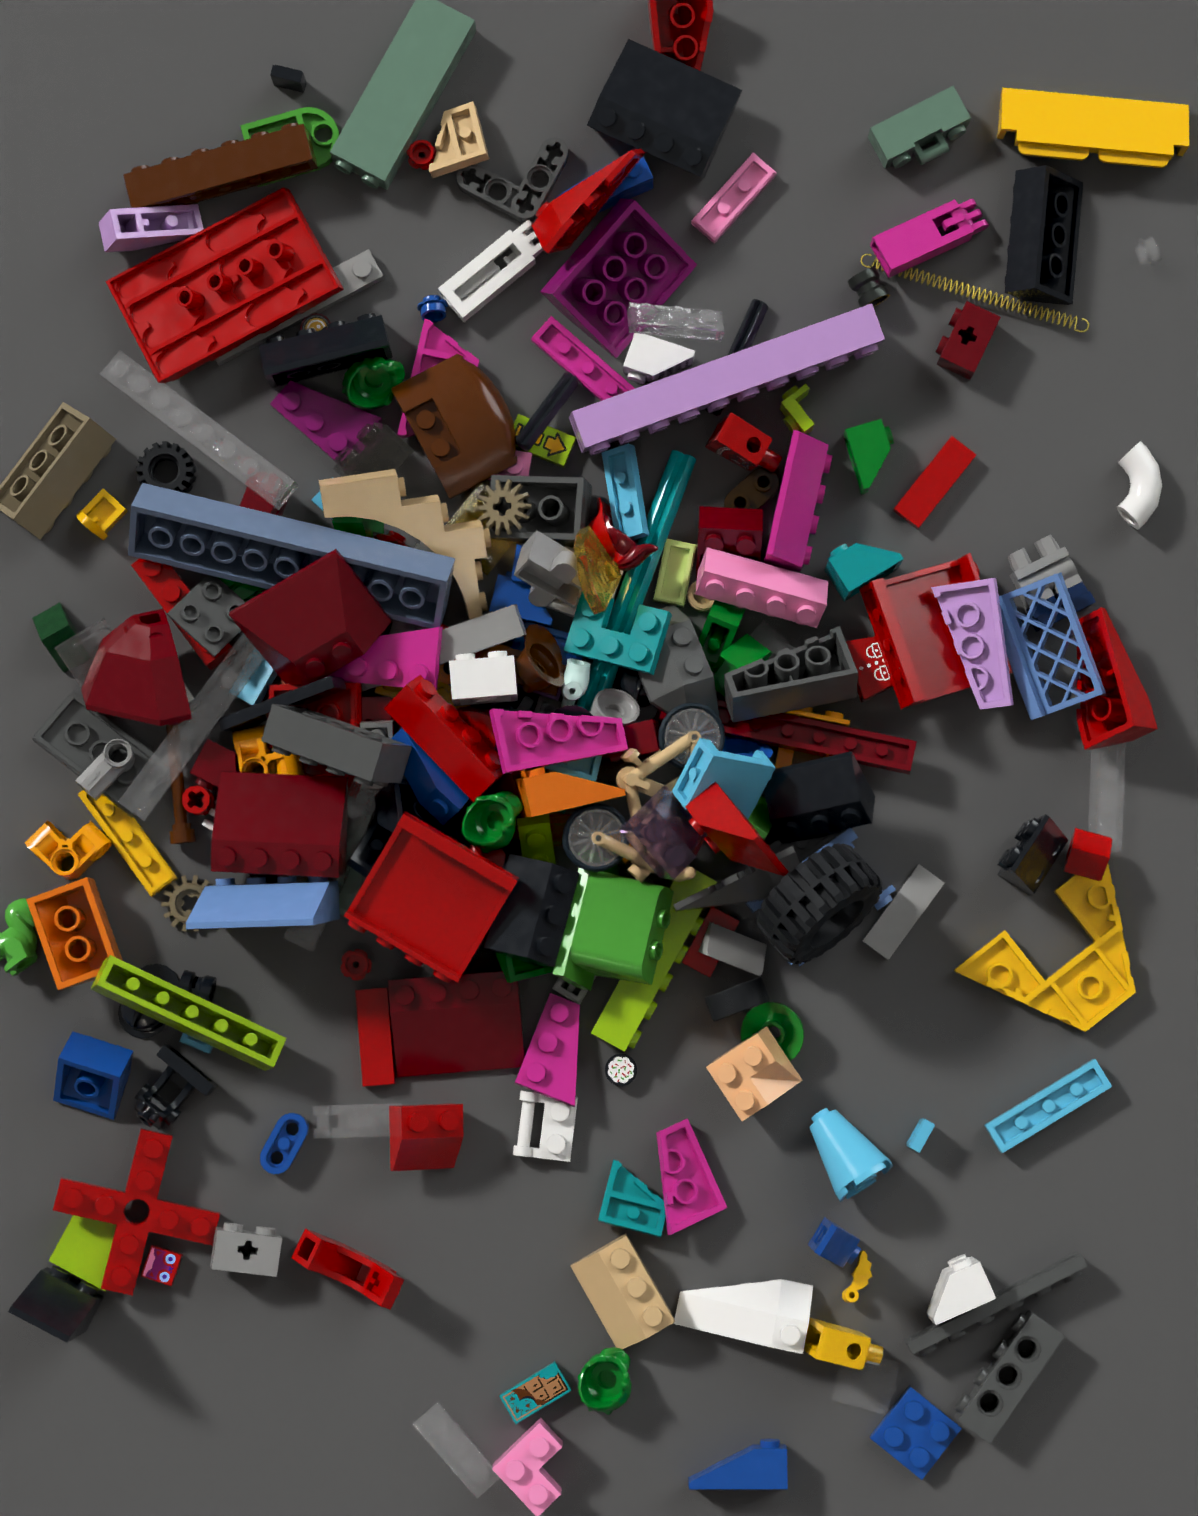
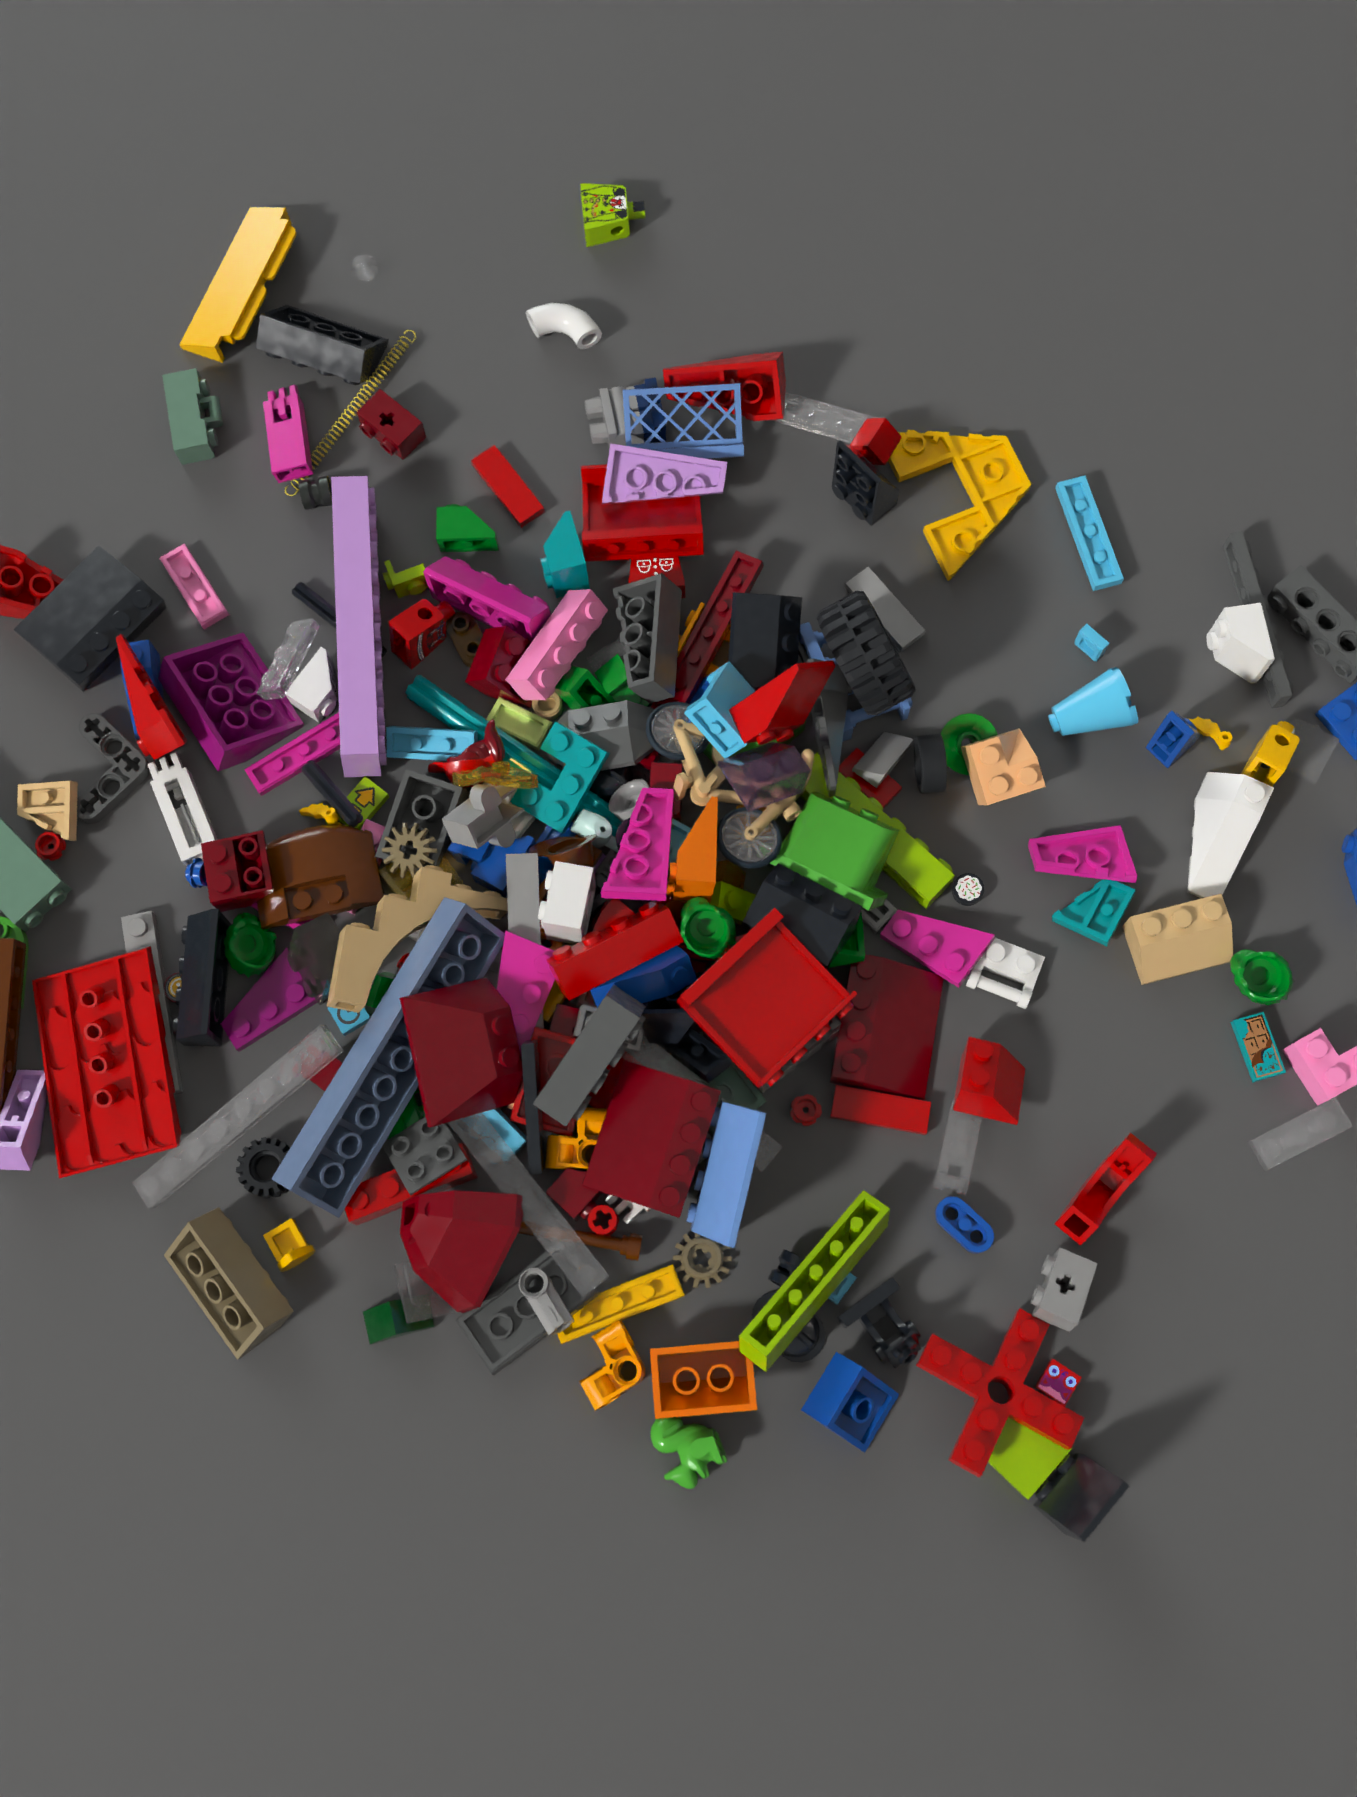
camera: 75 degrees left, 10 degrees down
(437, 347) = (237, 870): none -> dark red slope
(527, 405) = (321, 811): none -> yellow piece

